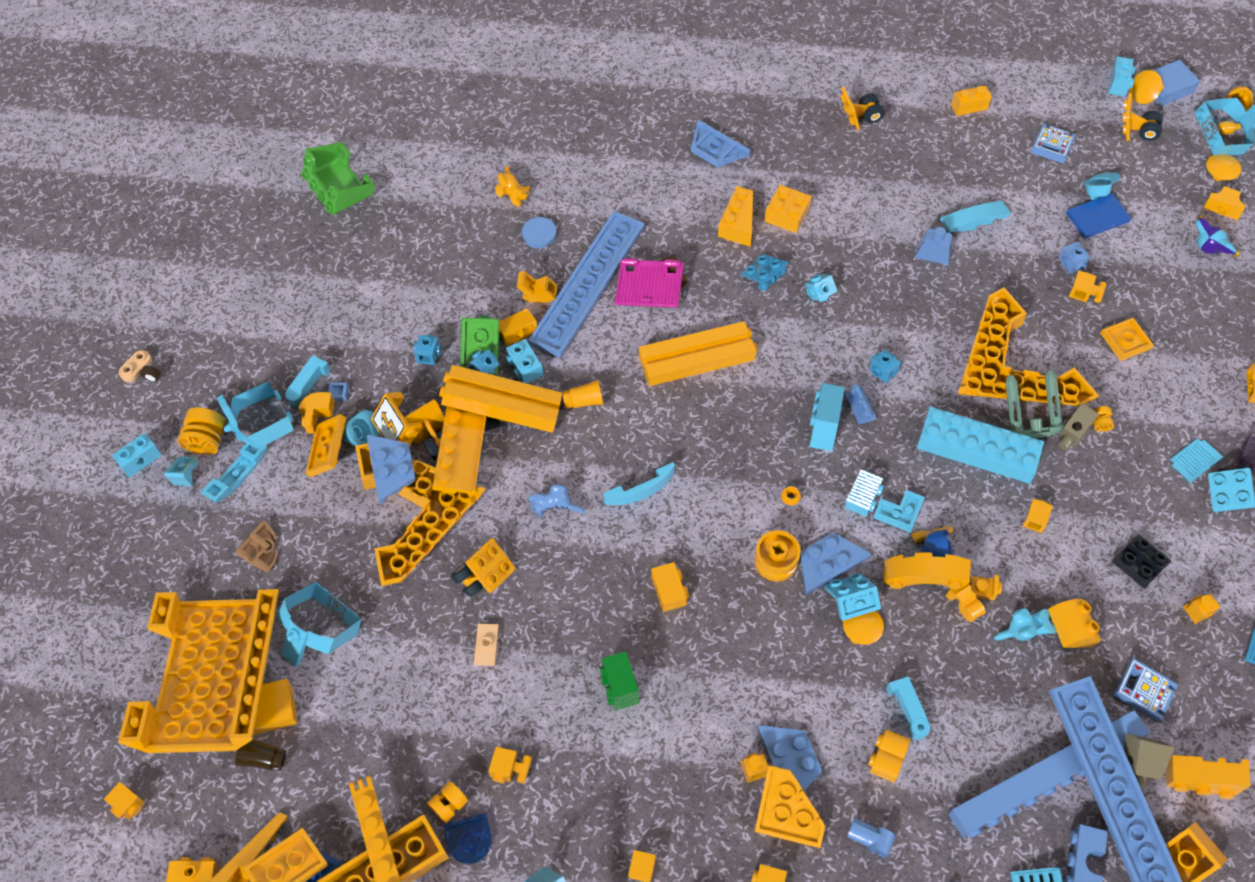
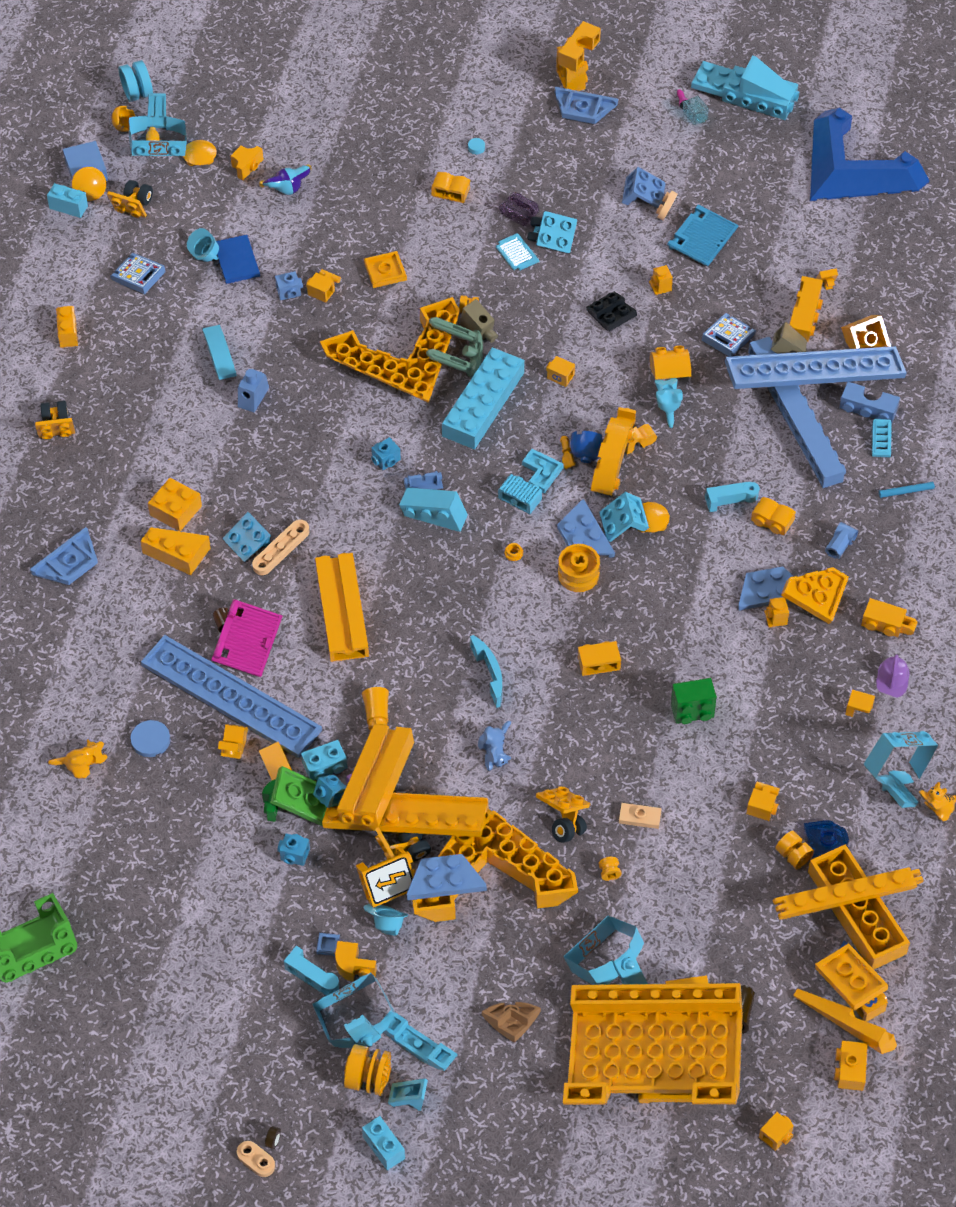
camera: 85 degrees left, 5 degrees down
(326, 445) = (402, 948): light orange plate -> none
(420, 619) = (609, 868): none -> light orange wheel
(758, 297) = (280, 547): none -> light nougat plate
(820, 287) = (282, 490): medium azure brick -> none

